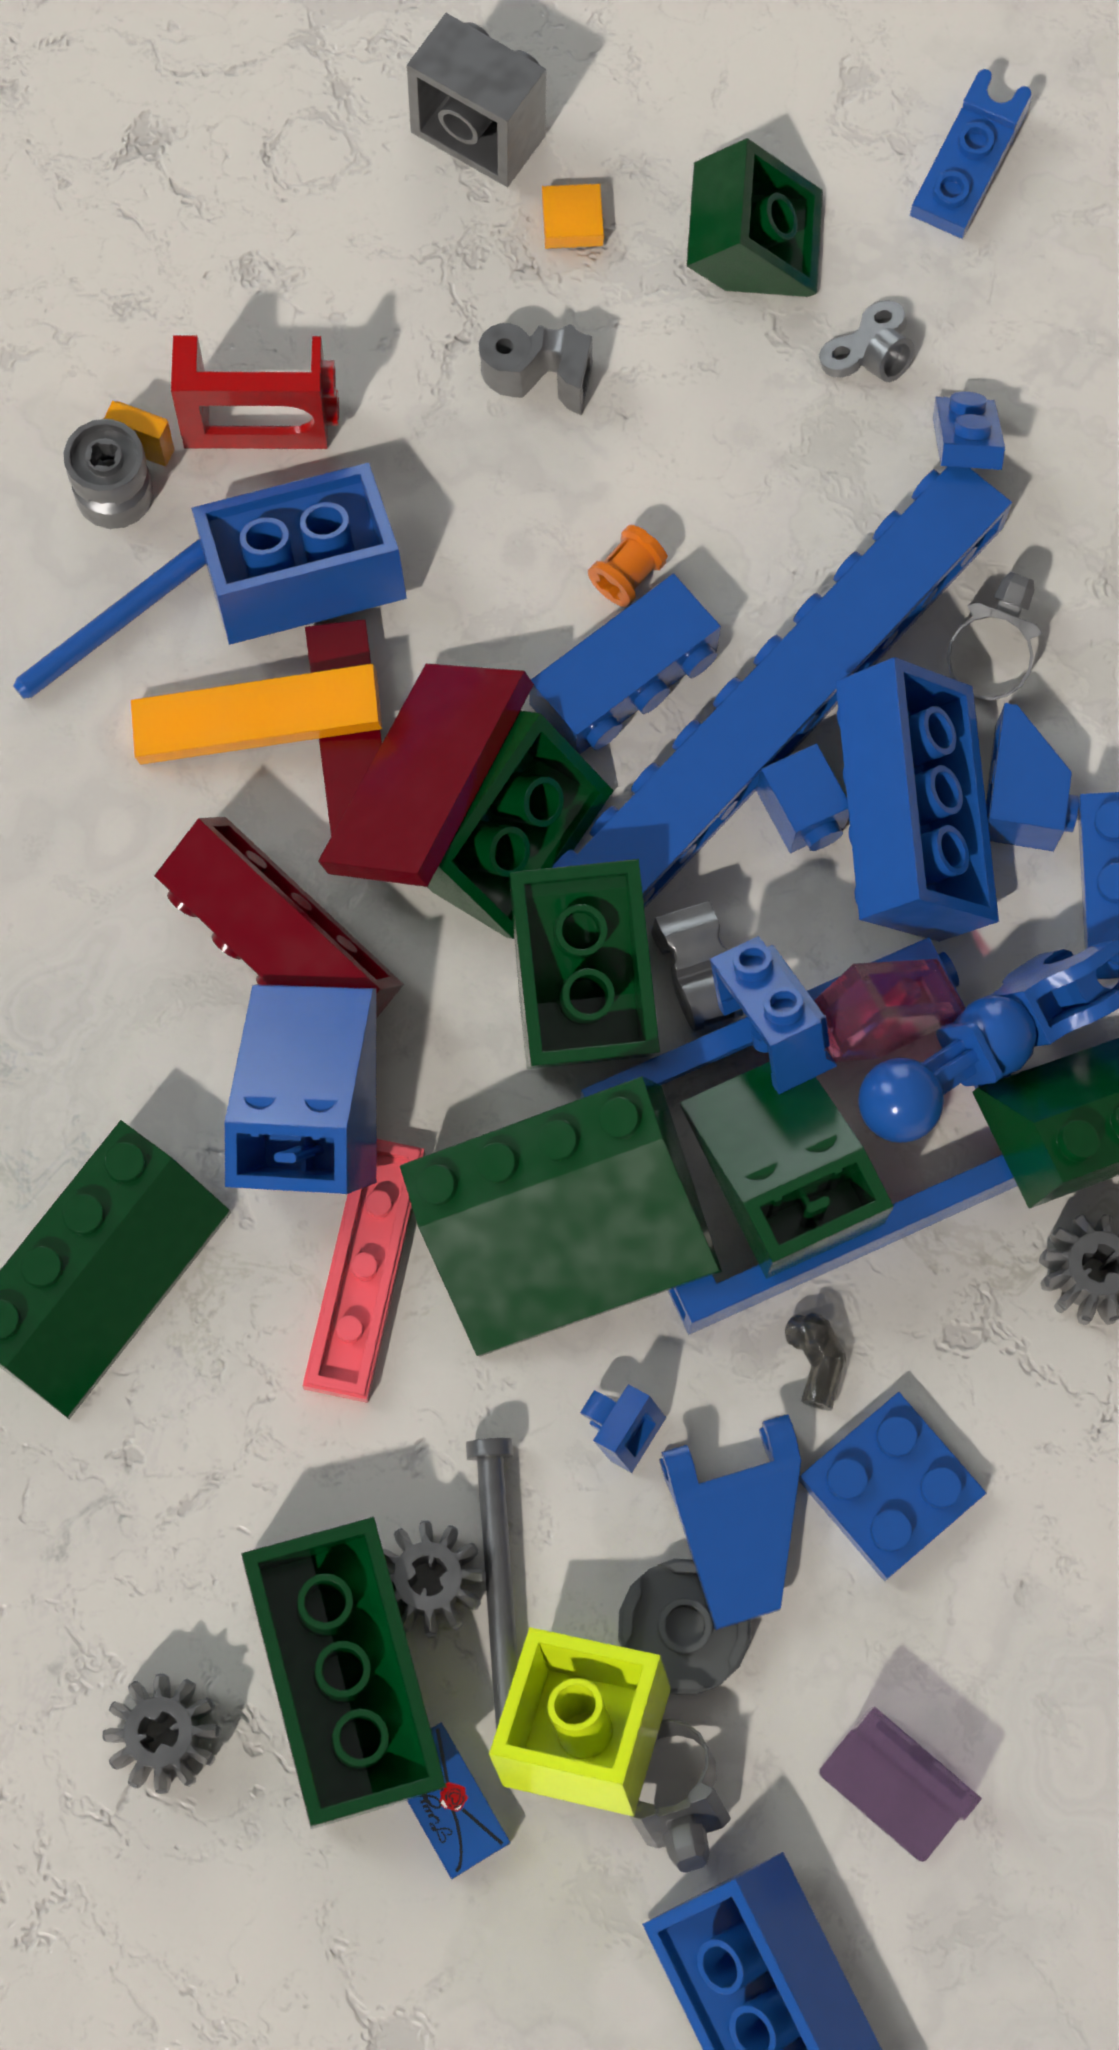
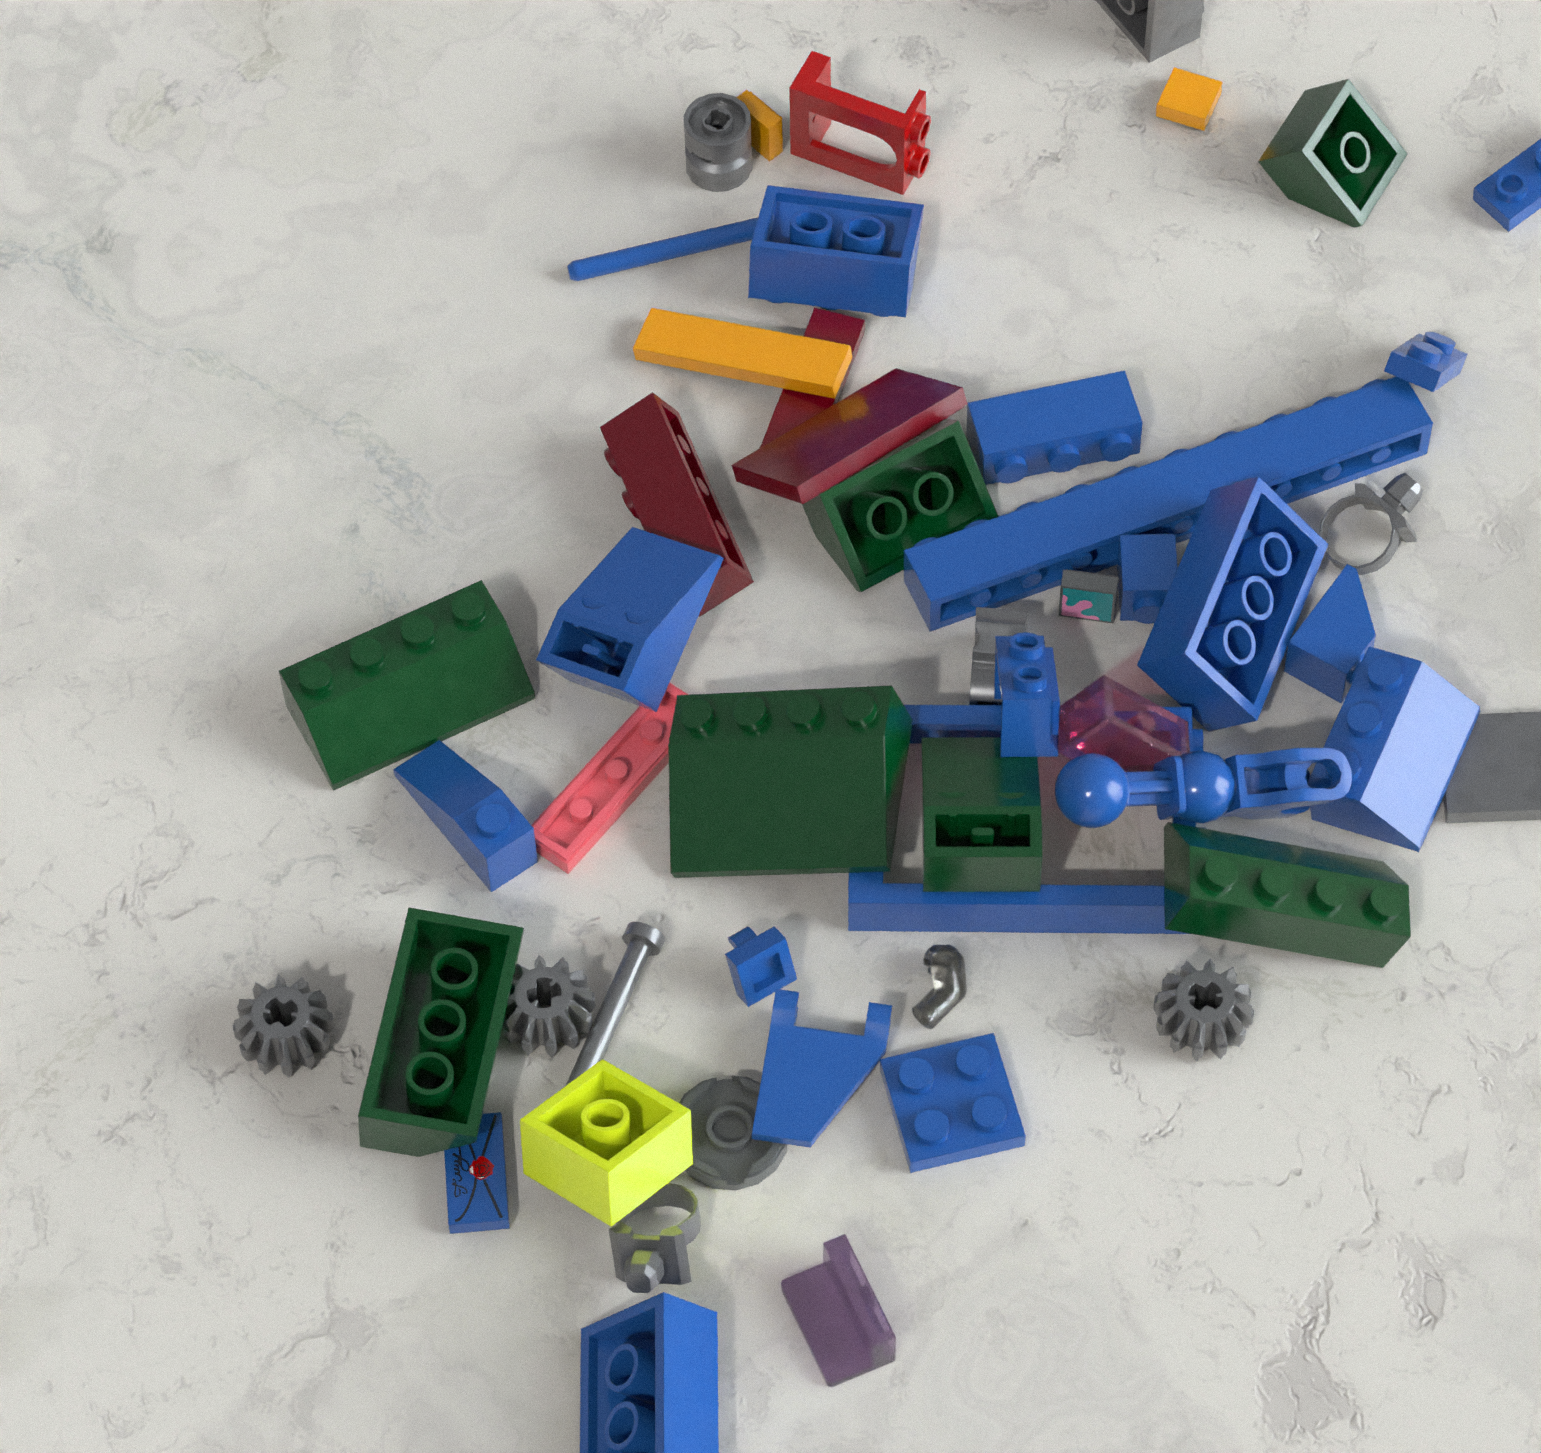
camera: 30 degrees right, 15 degrees down
(229, 1385) = (470, 814): none -> blue slope
(517, 361) = (1087, 185): flat silver leg -> none
(583, 964) = (898, 611): dark green slope -> none
(627, 565) = (1096, 357): orange bush -> none
(754, 846) = (1088, 596): none -> tile
(874, 345) = (1389, 281): flat silver piece -> none

